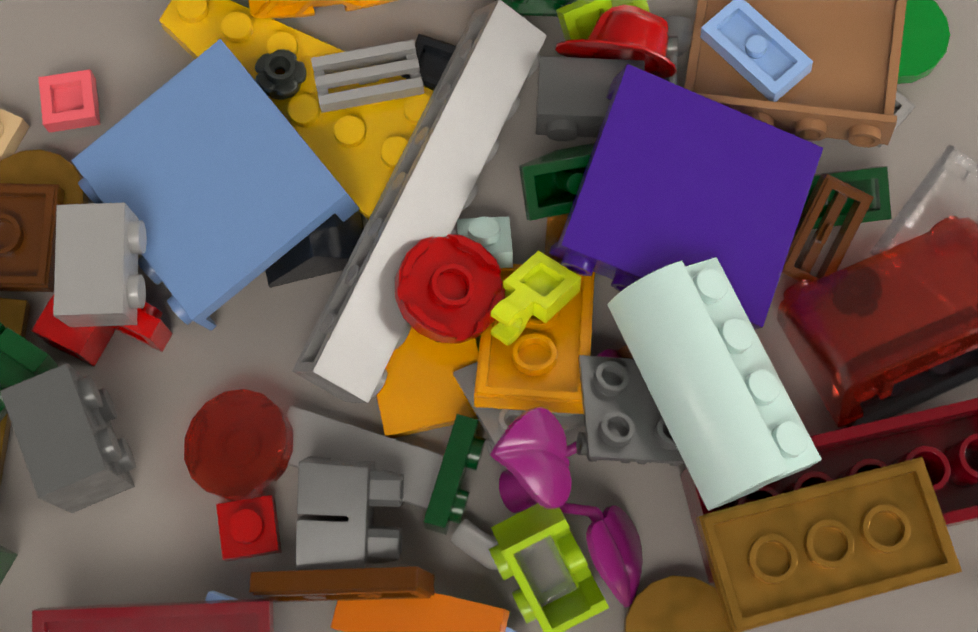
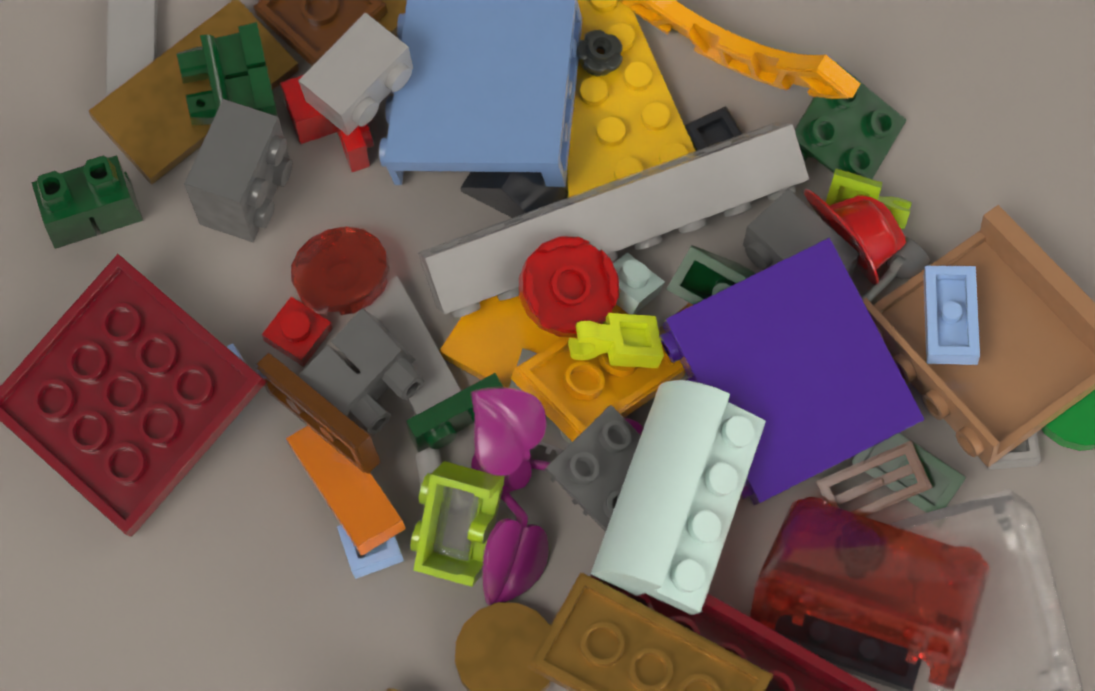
camera: 45 degrees right, 5 degrees down
(366, 57) = (664, 88): light grey tile -> none

